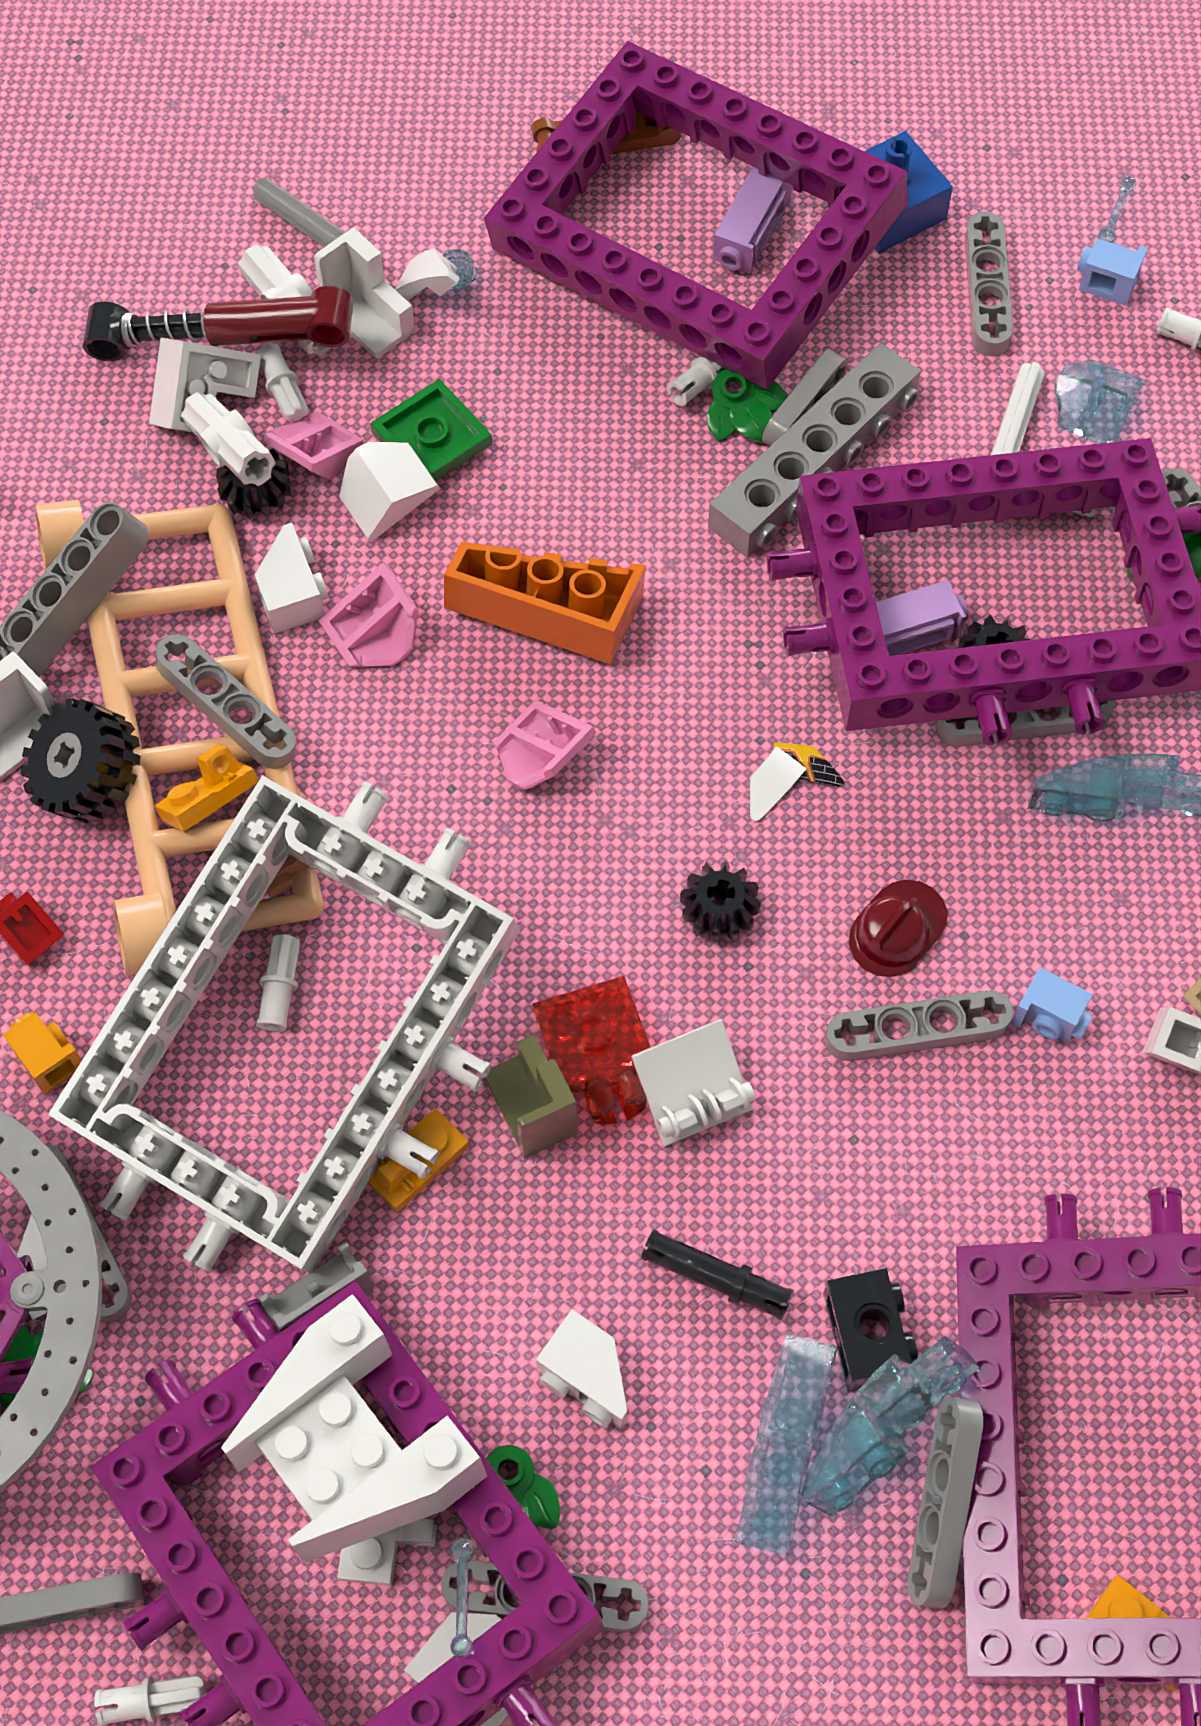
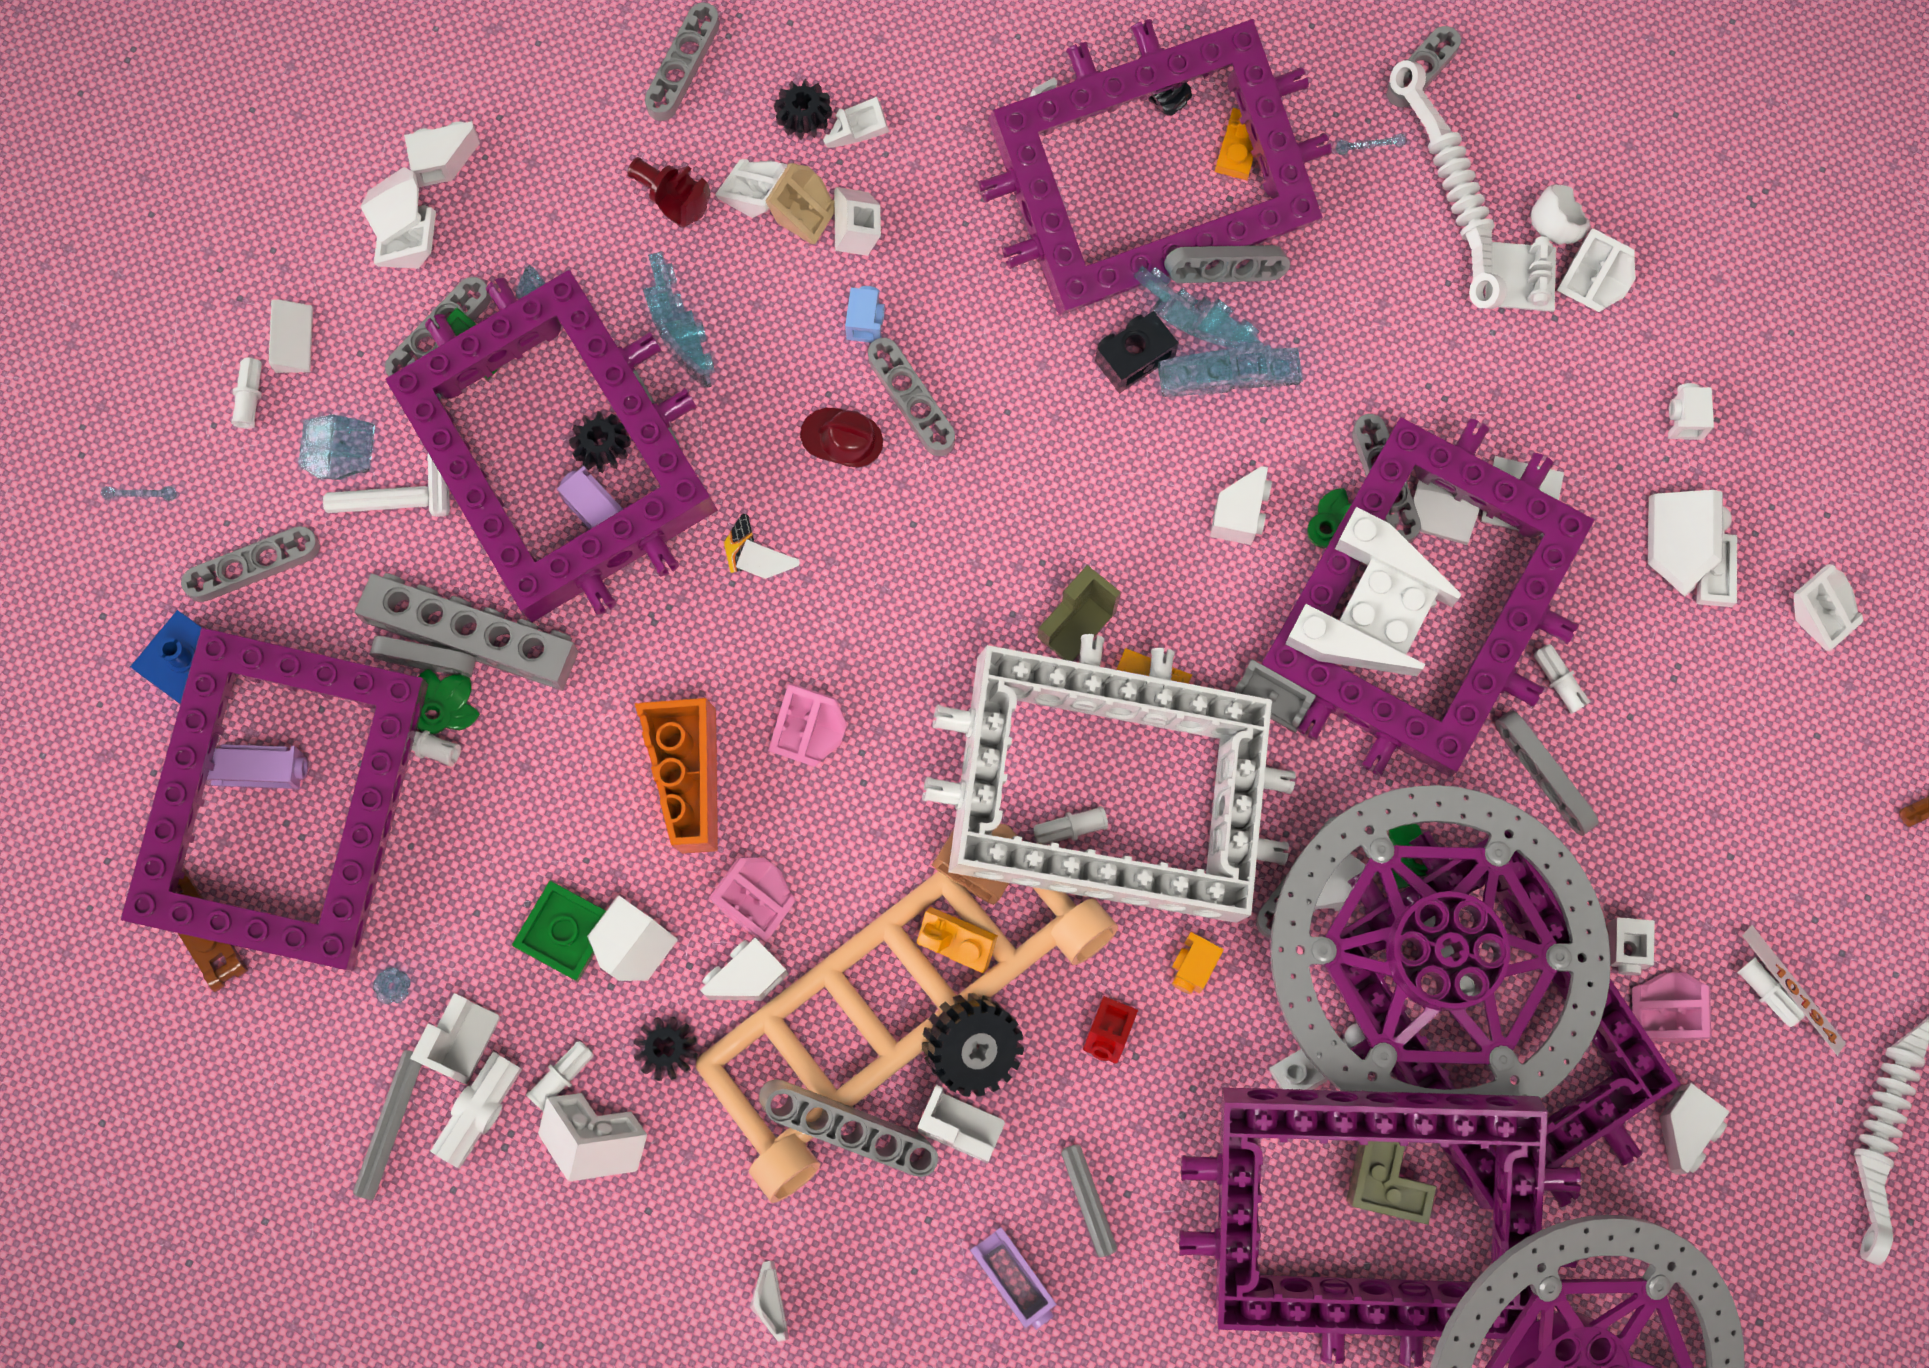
camera: 115 degrees left, 10 degrees up
(220, 704) = (881, 965): light grey beam -> none
(228, 438) = (648, 1071): white piece -> none
(315, 443) = (610, 1022): bright pink slope -> none
(320, 318) = (531, 1138): dark red piece -> none
(429, 271) = (409, 1000): white slope -> none
(462, 1552) = (1405, 508): clear light blue hinge -> none
(592, 1041) = (1022, 590): clear red plate -> none
(692, 1082) = (1024, 517): white hinge -> none
(717, 1274) = (1141, 444): black pin -> none
(727, 918) = (869, 562): black gear -> none
(1110, 270) = (208, 473): light blue brick -> none

